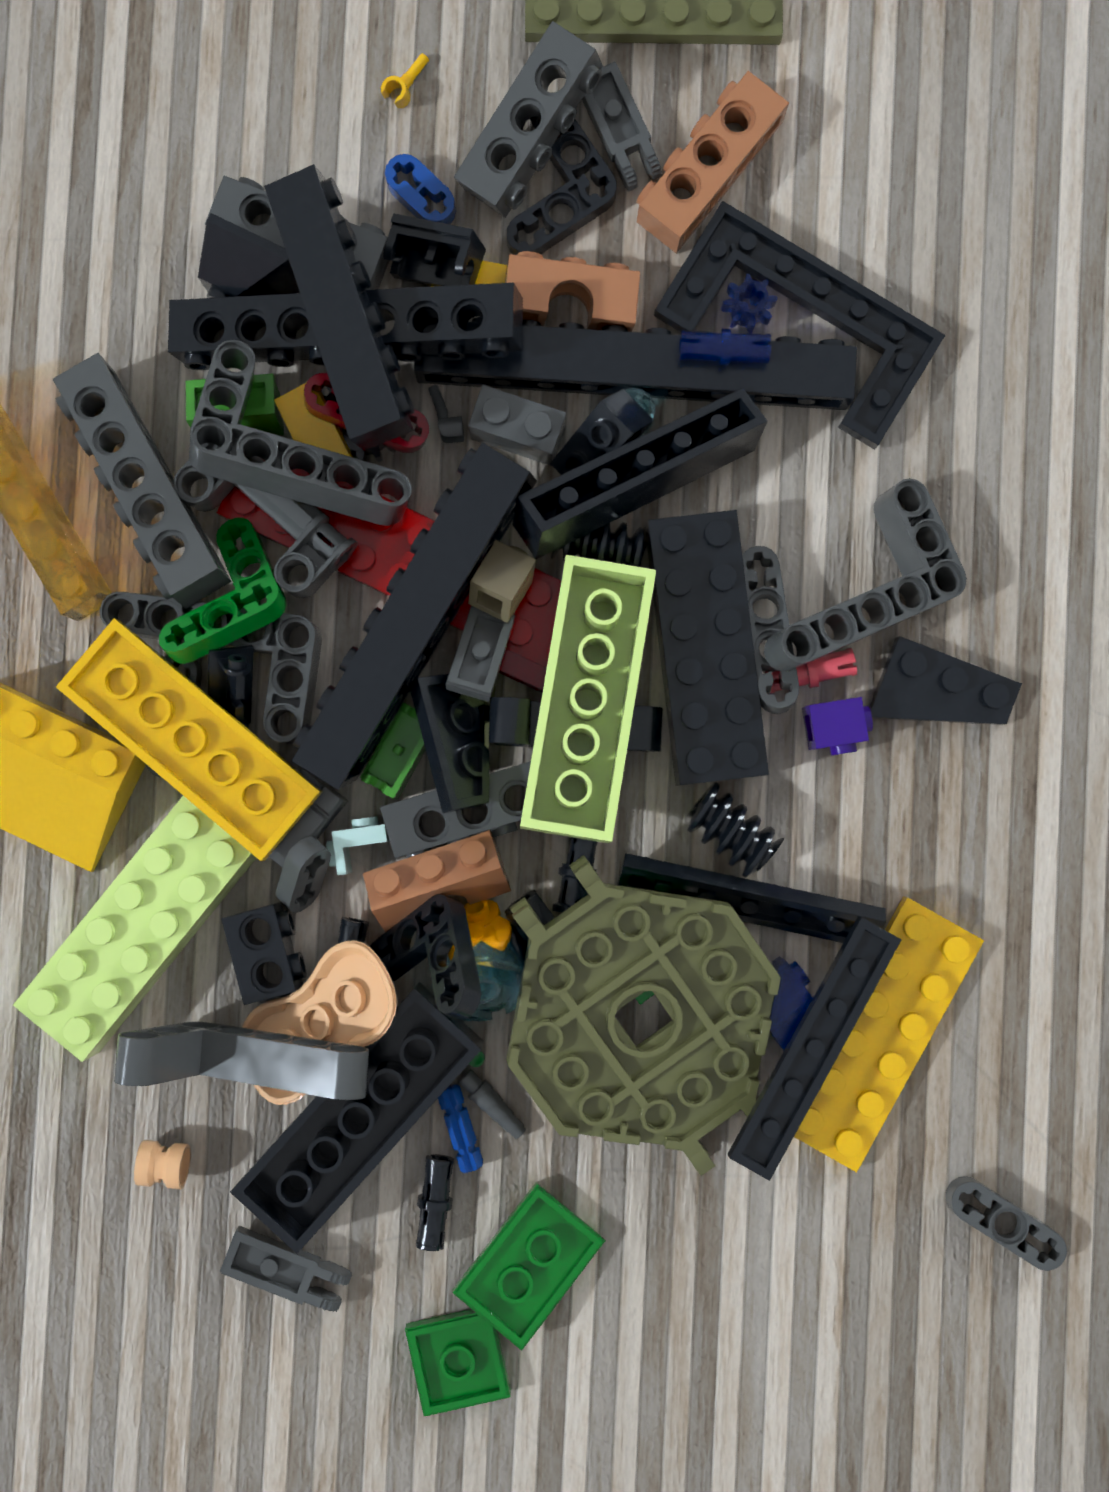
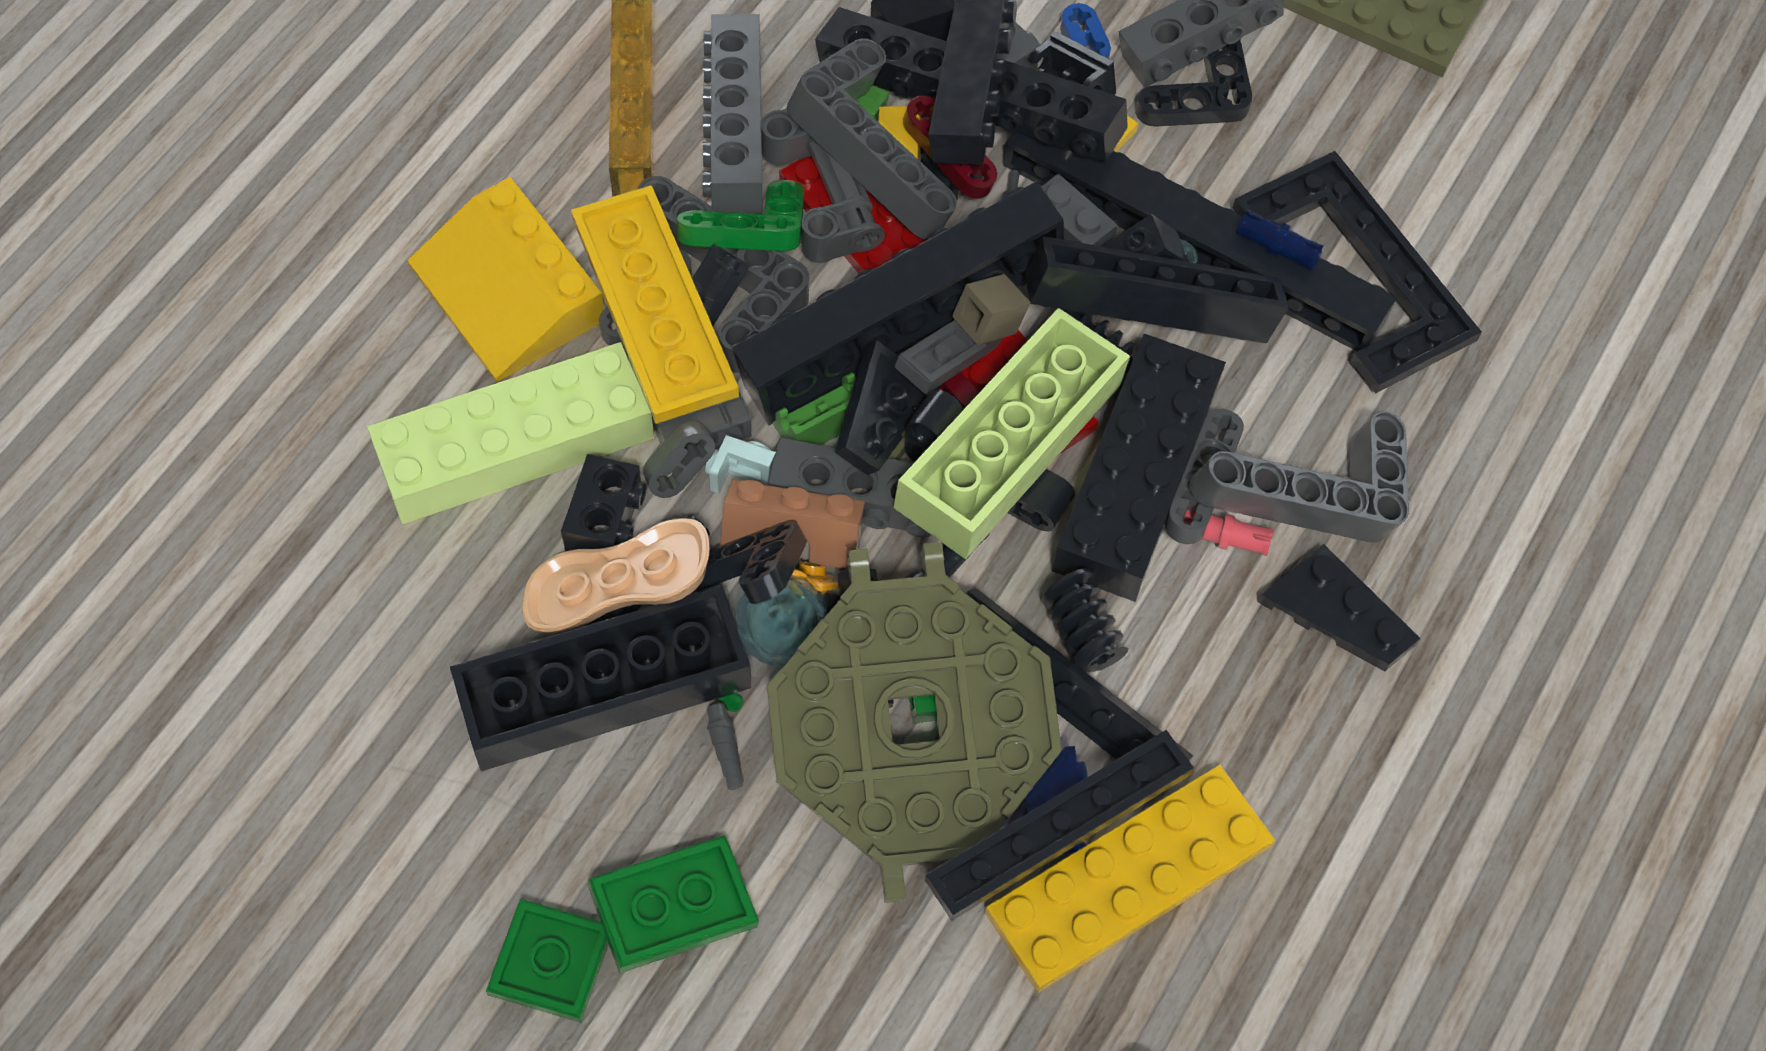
camera: 25 degrees right, 25 degrees down
(159, 1163) = (395, 632): light nougat wheel -> none
(241, 1056) = (529, 566): dark grey beam -> none
(281, 1271) = (441, 782): dark grey hinge -> none
(434, 1202) = (619, 801): black pin -> none
(460, 1129) = (683, 750): blue axle -> none
(605, 290) = (1196, 162): nougat arch -> none
(621, 126) = (1276, 65): dark grey hinge -> none
(746, 103) = (1340, 121): nougat brick -> none
(758, 296) = (1321, 227): clear blue gear -> none
(837, 725) = (1228, 584): dark purple brick -> none

